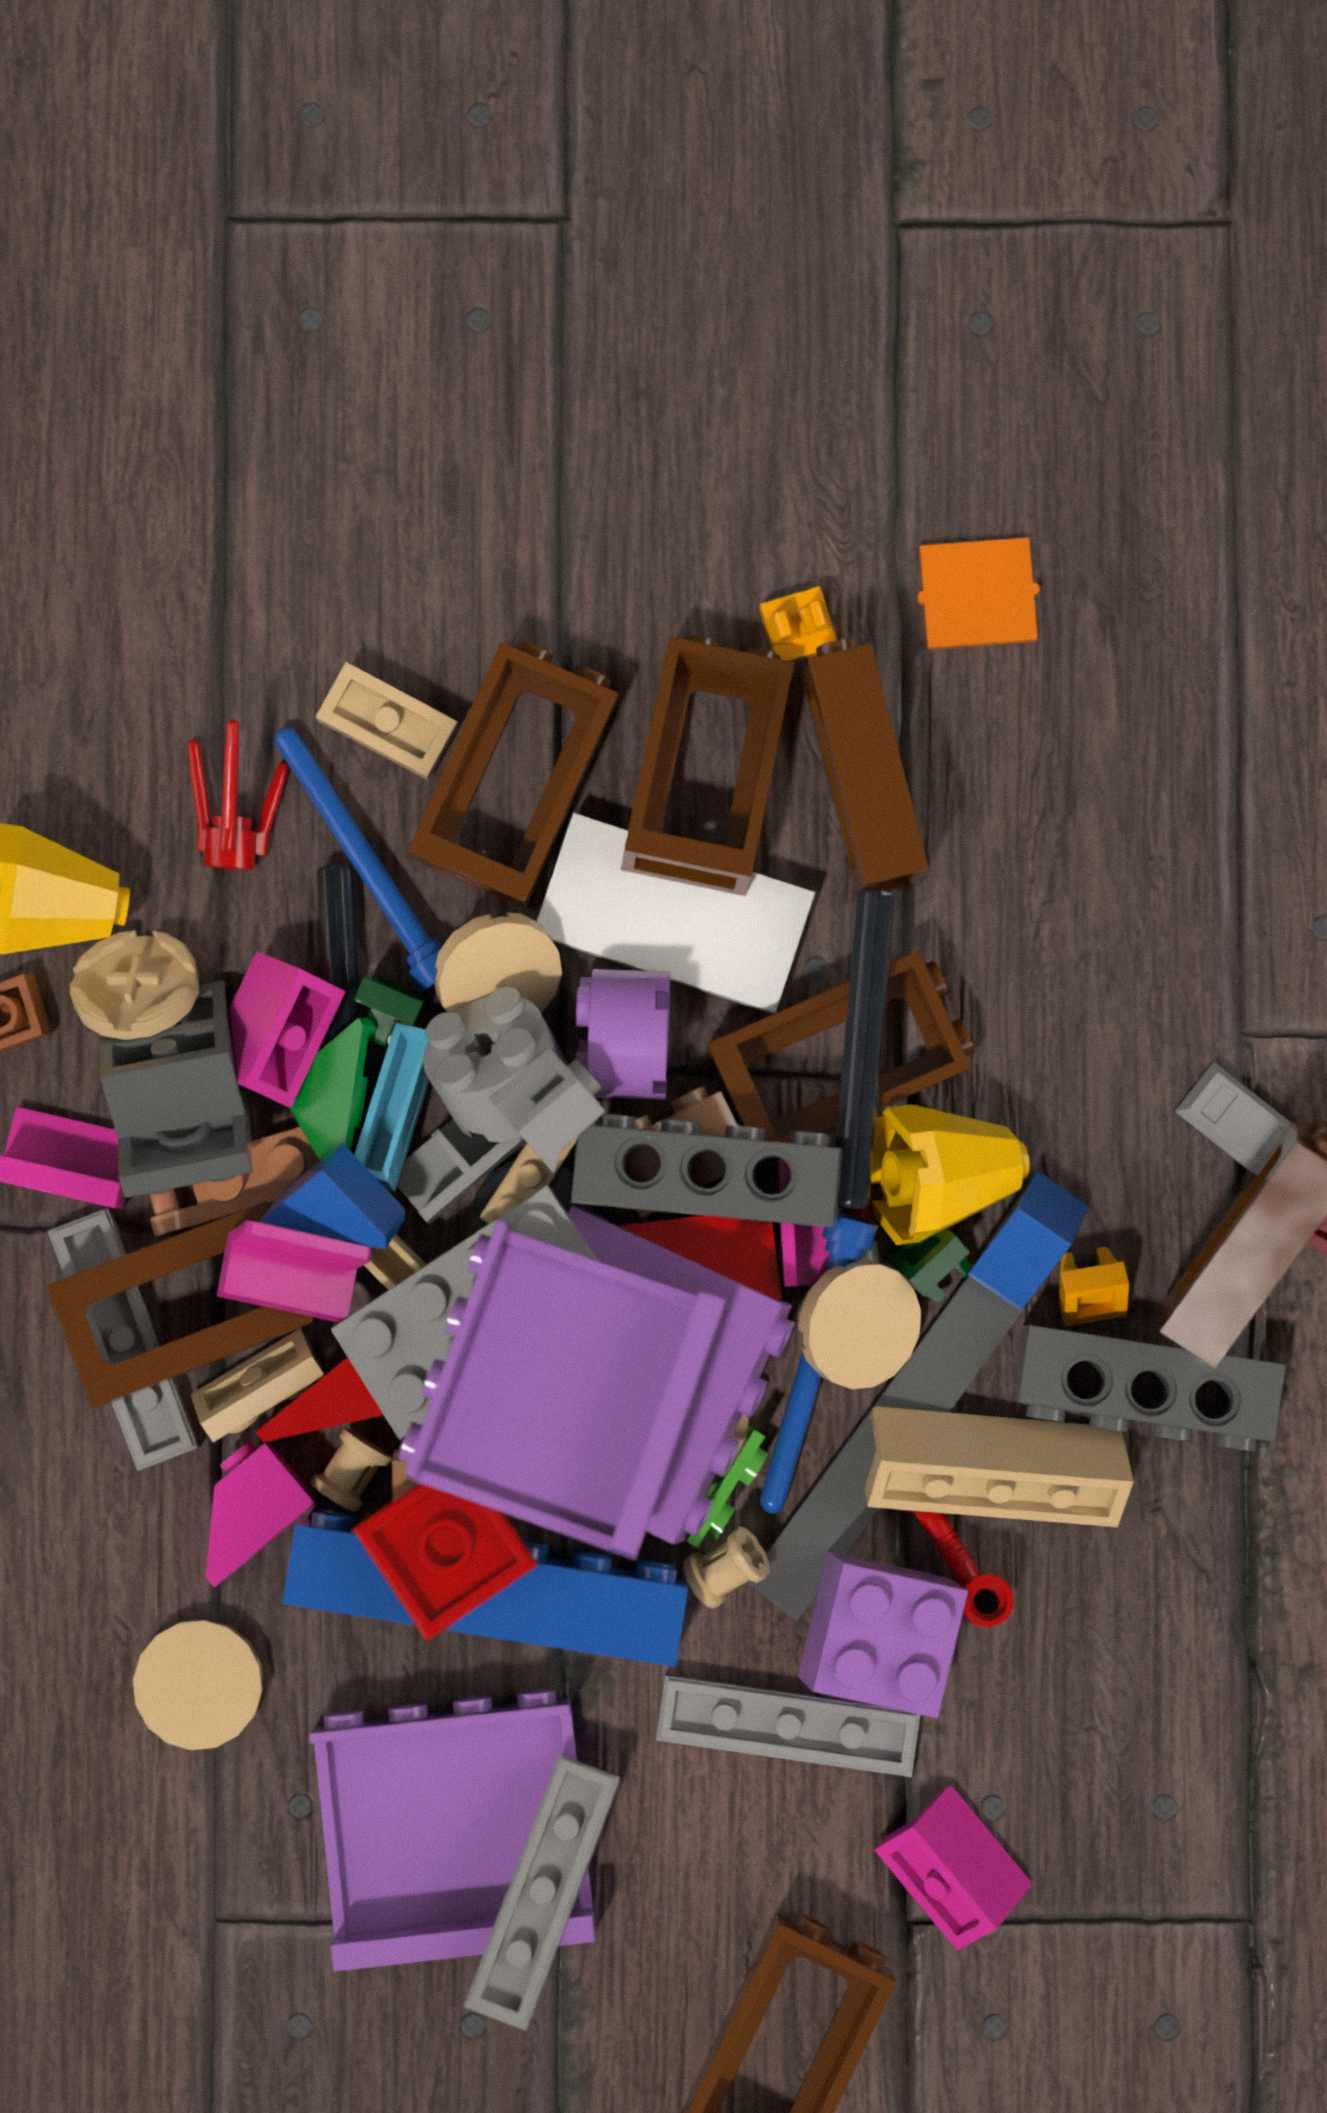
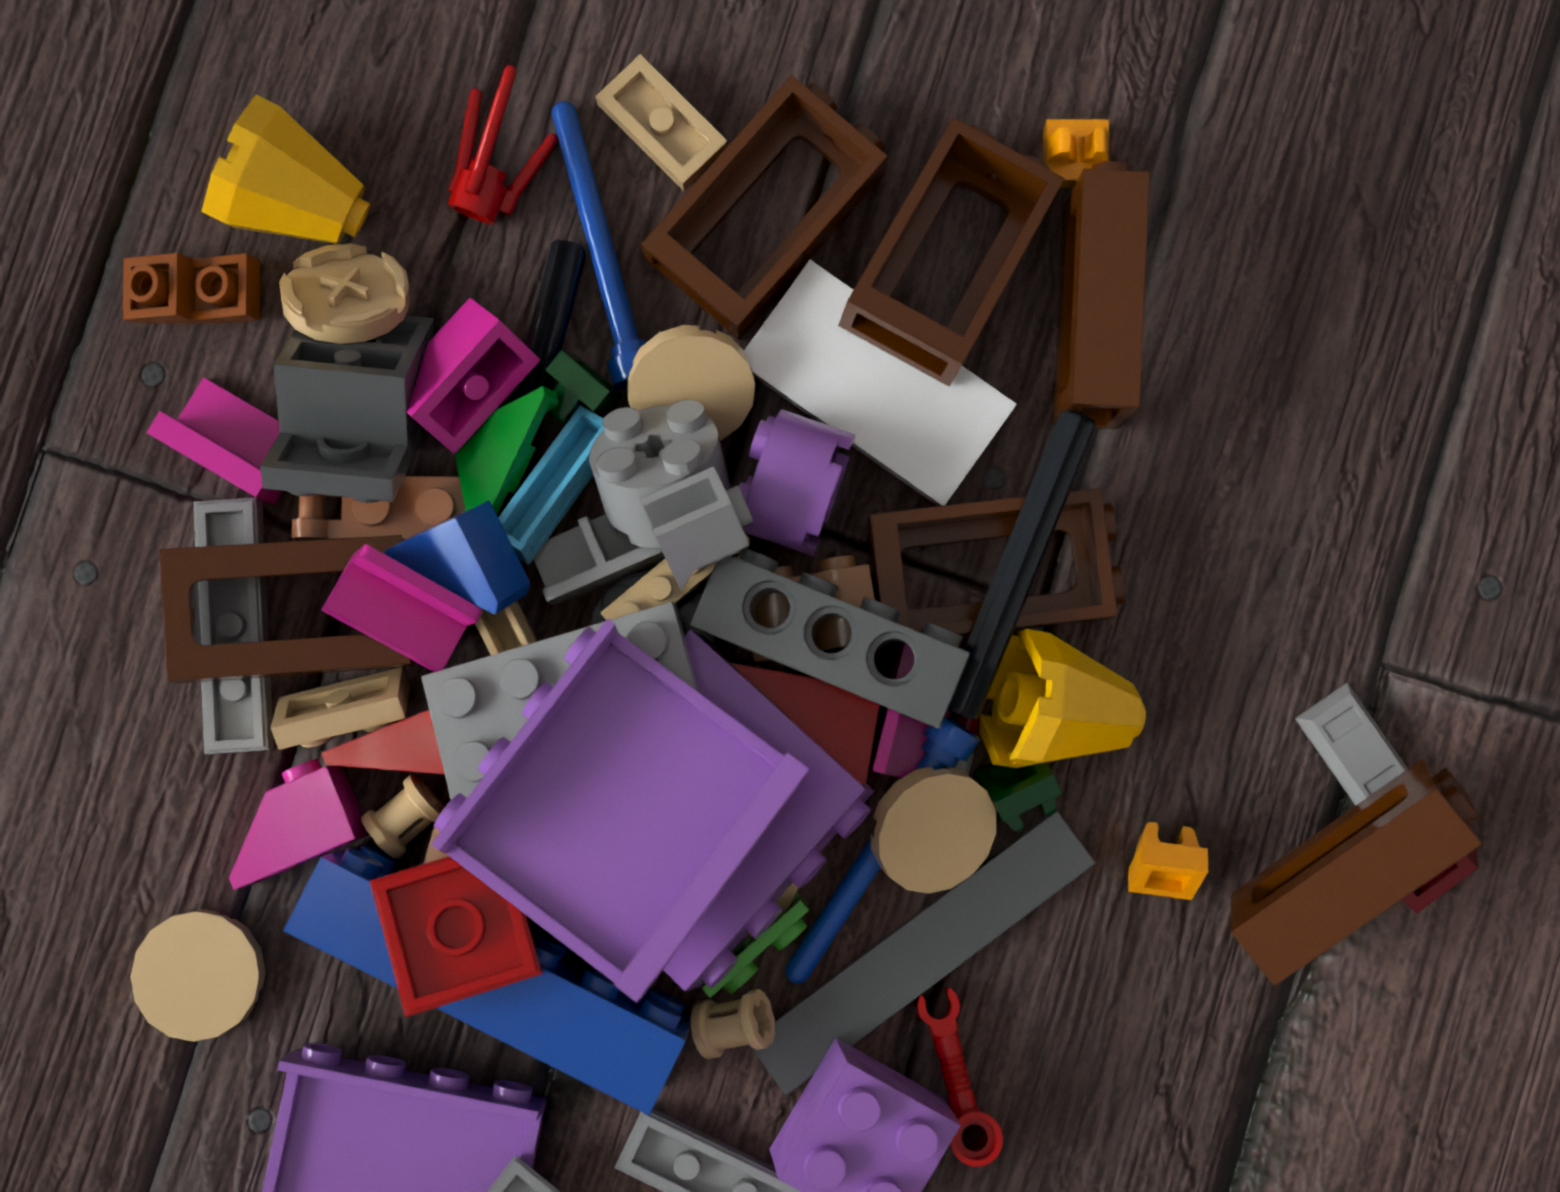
camera: 25 degrees right, 0 degrees up
(978, 593) = (1254, 174): orange piece -> none
(998, 1467) = (1025, 1009): tan panel -> none
(1029, 1241) = (1121, 800): blue slope -> none
(1249, 1387) = (1290, 1012): dark grey brick -> none

